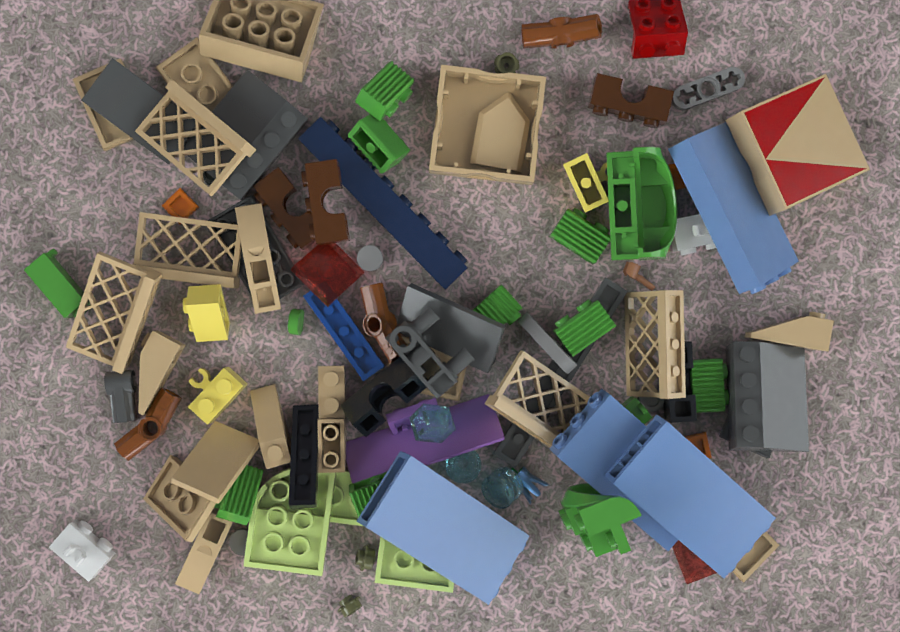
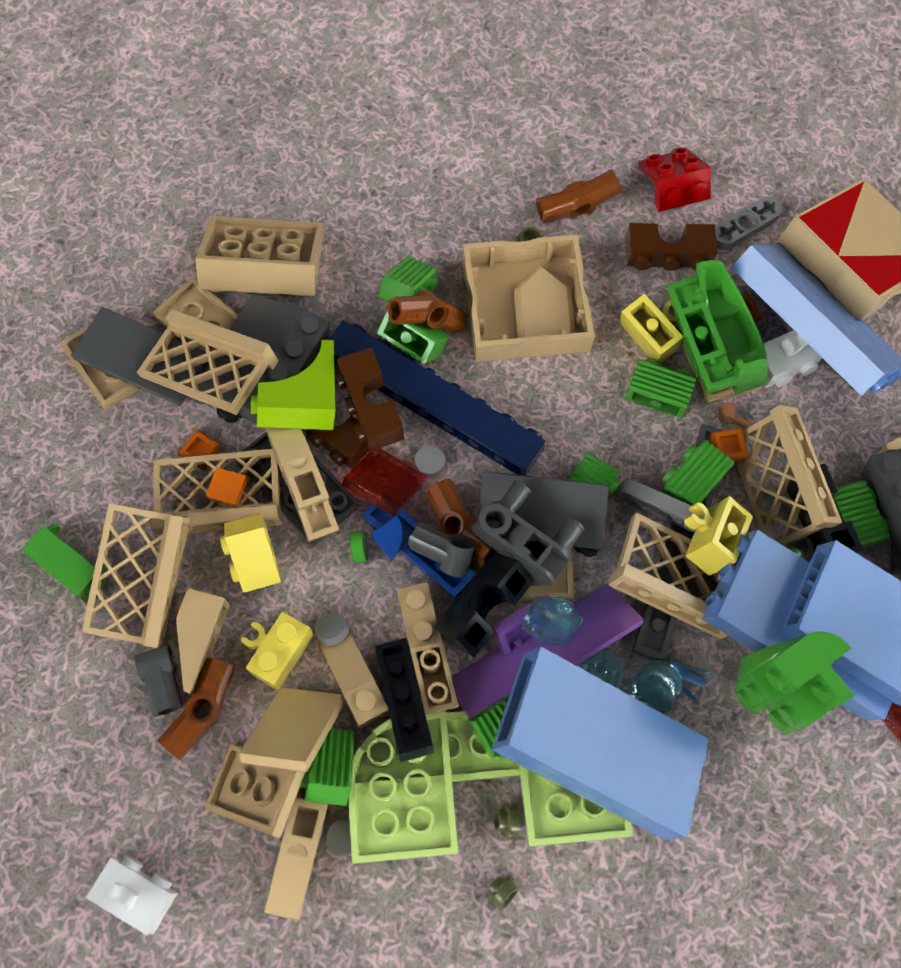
camera: 20 degrees left, 20 degrees down
(196, 252) = (226, 487): none -> orange tile
(261, 384) = (331, 629): none -> light grey tile
(271, 194) = (301, 400): none -> lime arch
(321, 323) = (389, 537): none -> blue tile
(366, 348) = (451, 551): none -> dark grey piece
(393, 127) = (427, 309): none -> dark orange piece
(582, 384) = (716, 534): none -> light yellow brick
(620, 303) = (730, 443): none -> orange tile

